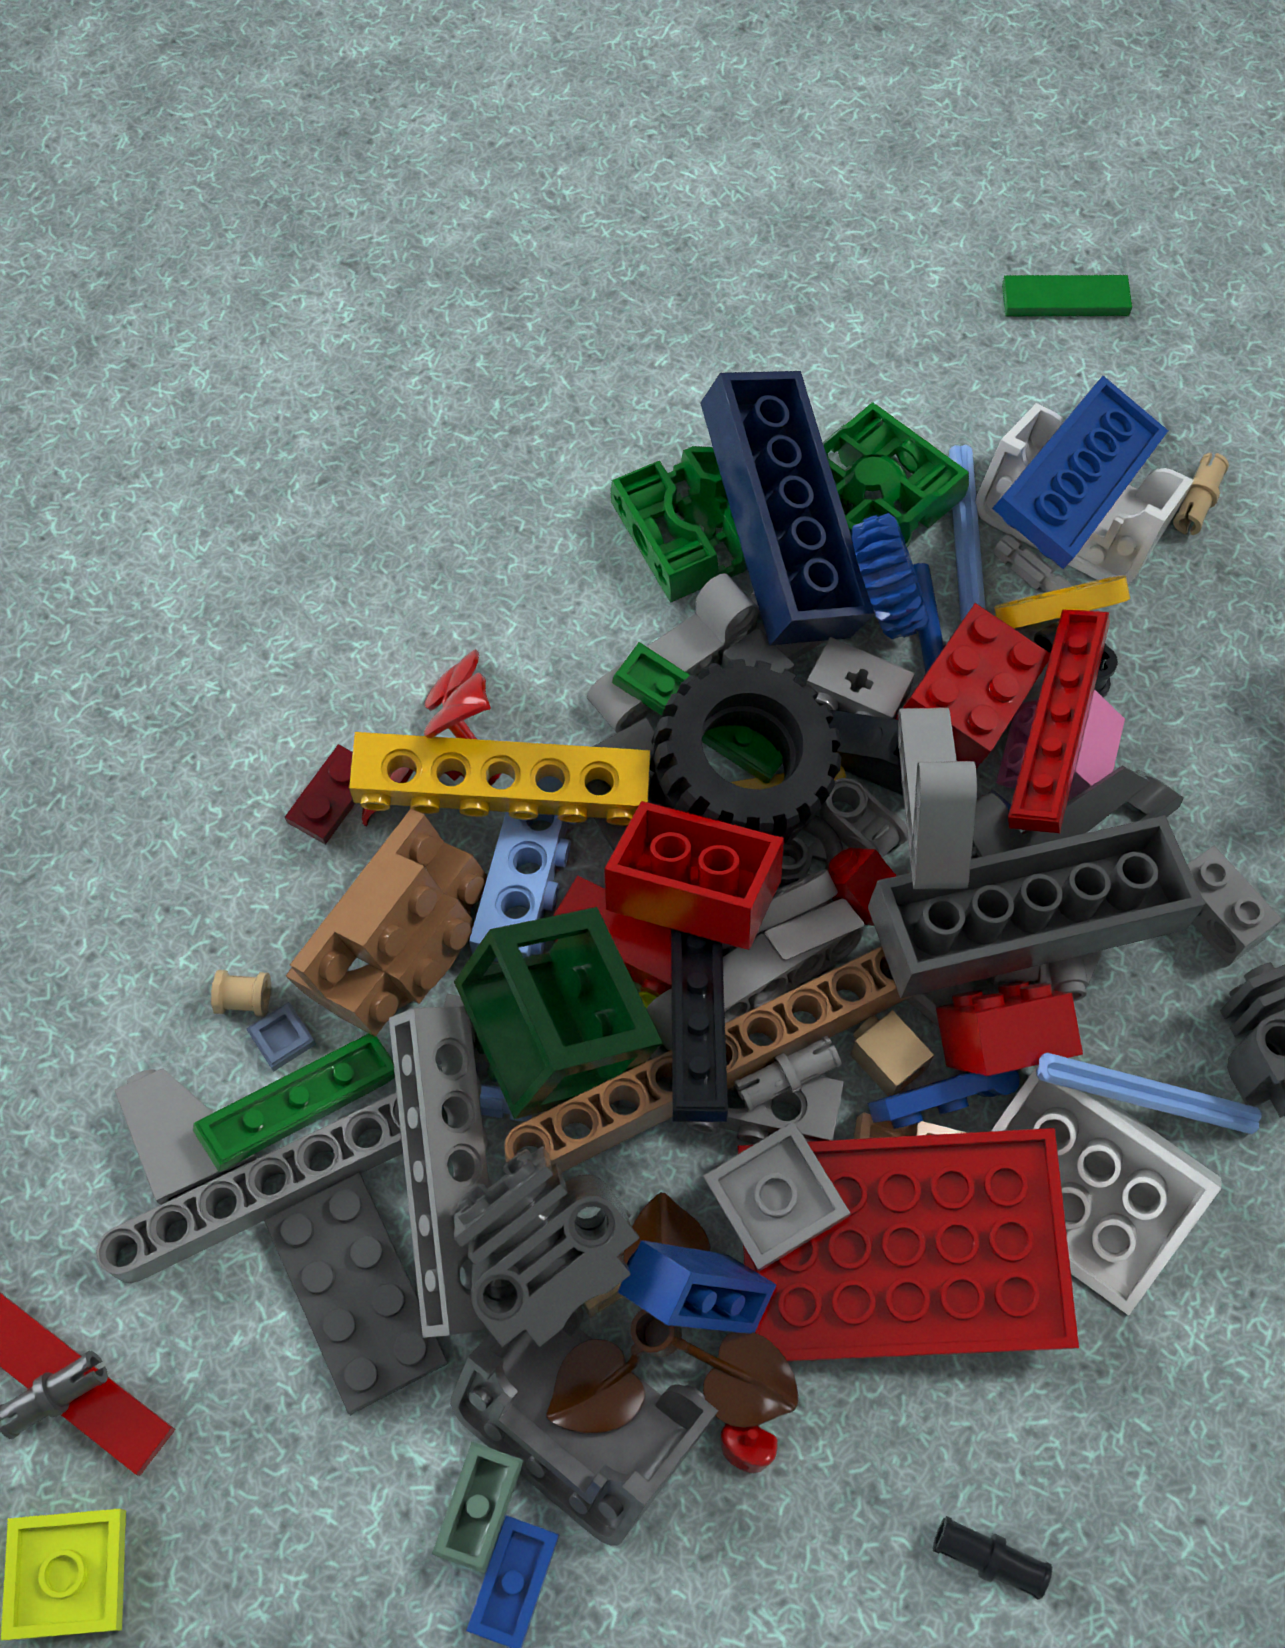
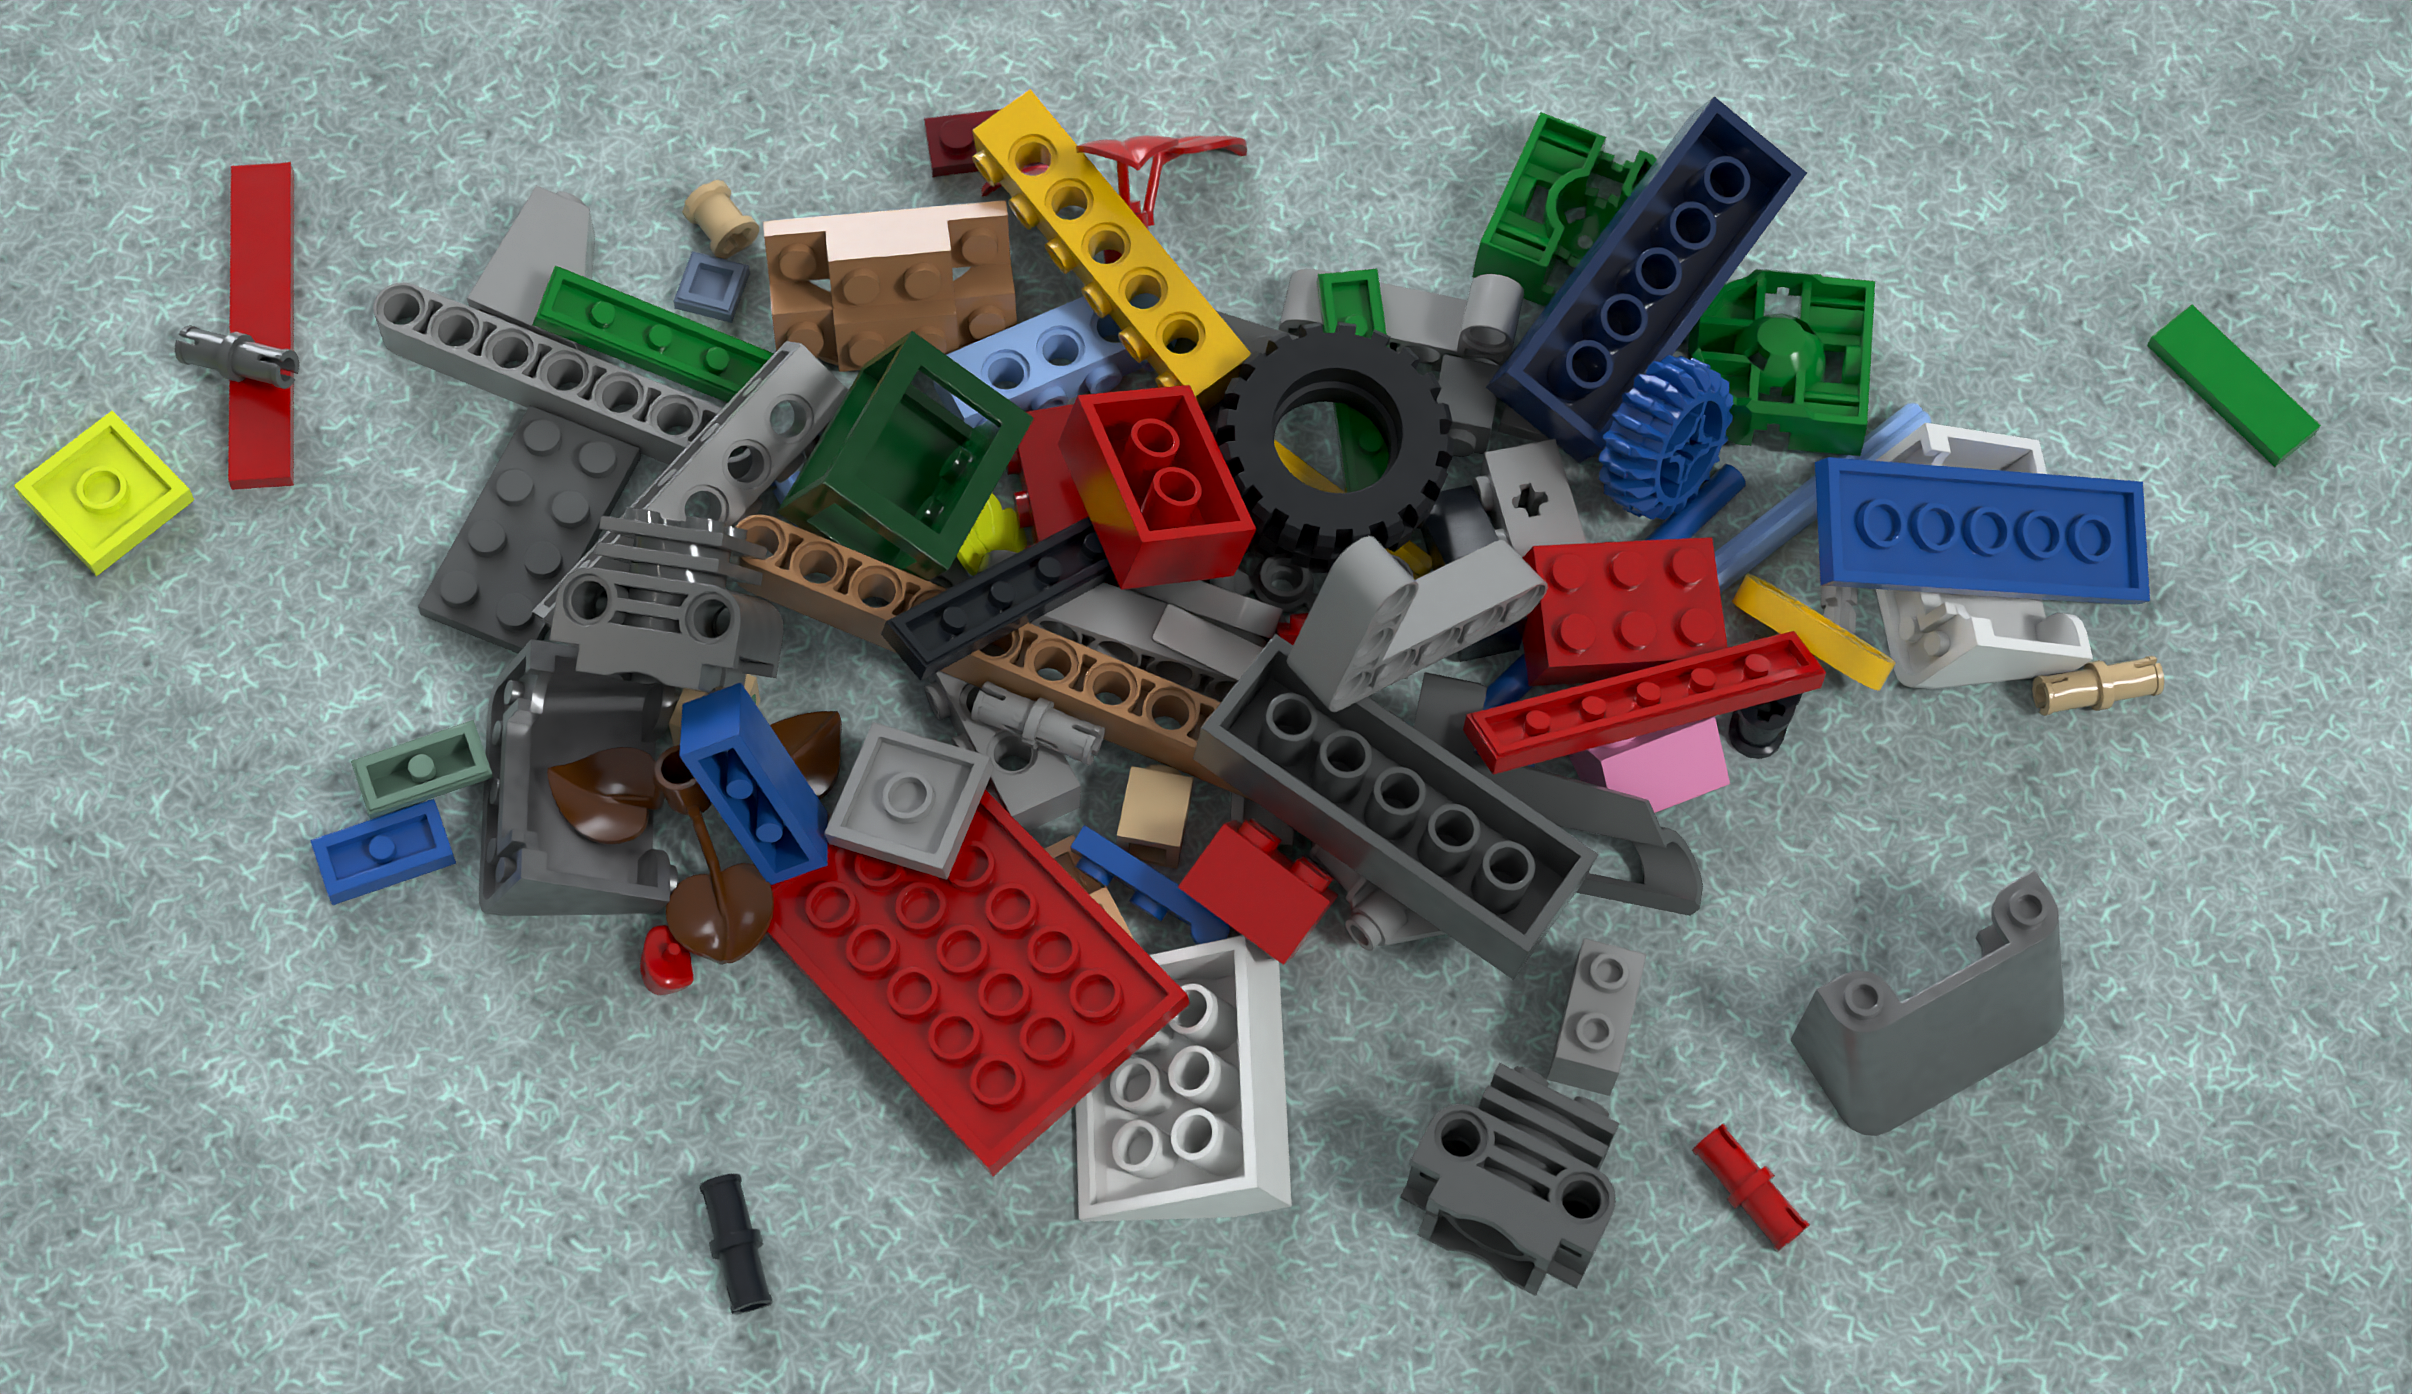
camera: 45 degrees right, 0 degrees up
(1148, 1093) = (1309, 1067): light blue axle -> none

